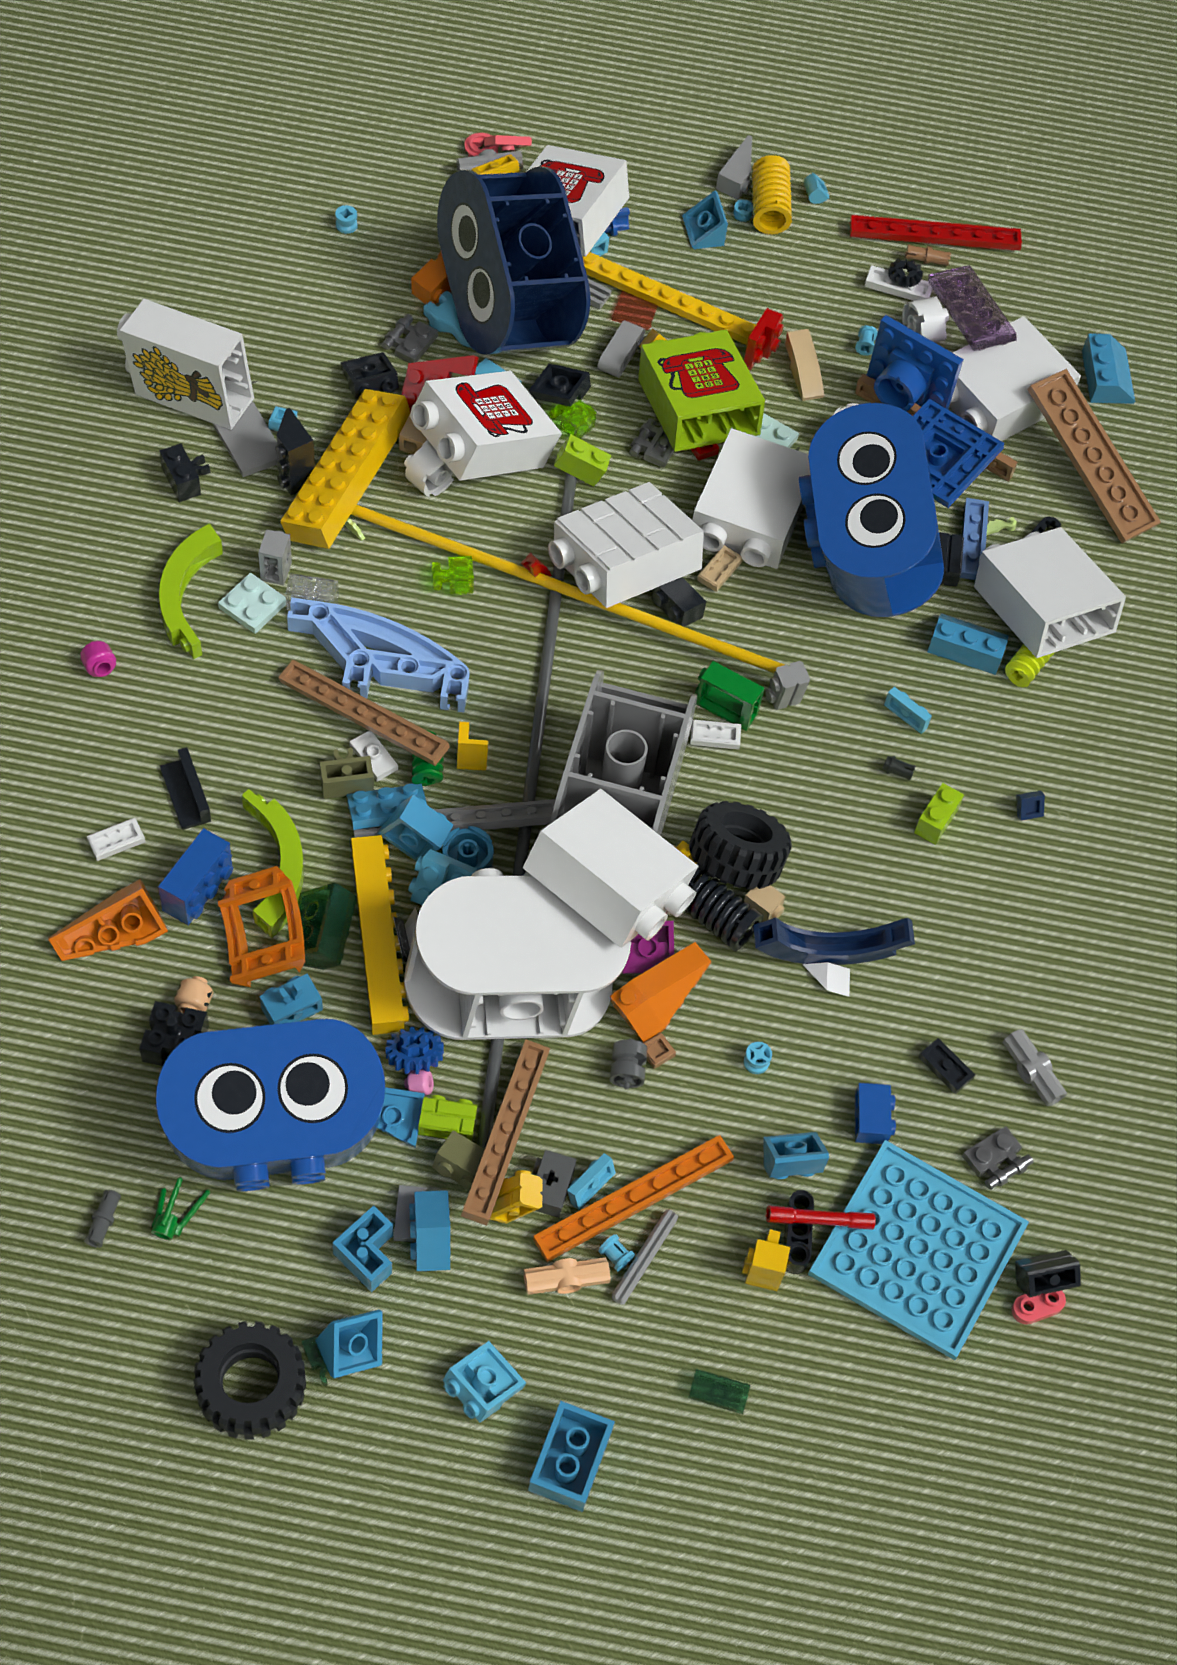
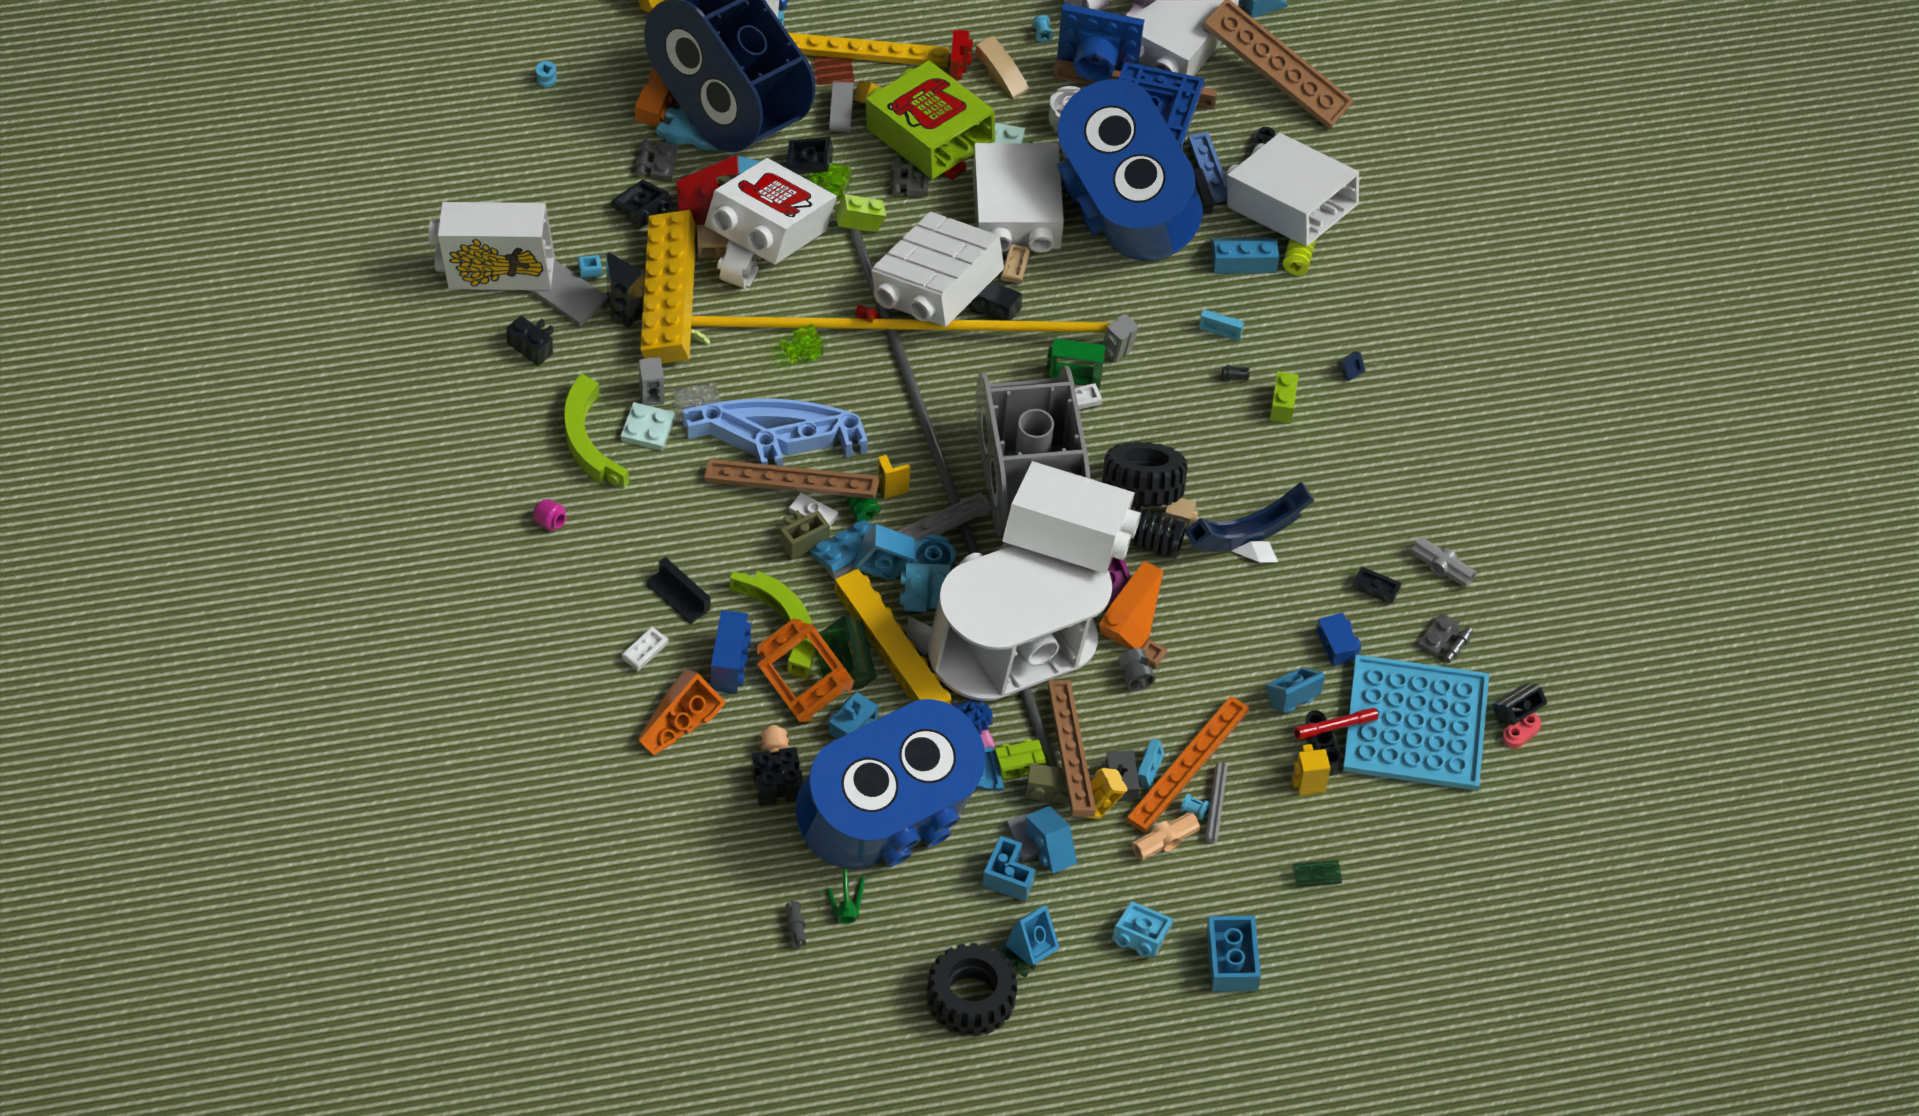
camera: 20 degrees left, 5 degrees down
(755, 1052) = (1228, 626): medium azure wheel -> none
(997, 525) = (1223, 148): yellowish green piece -> none

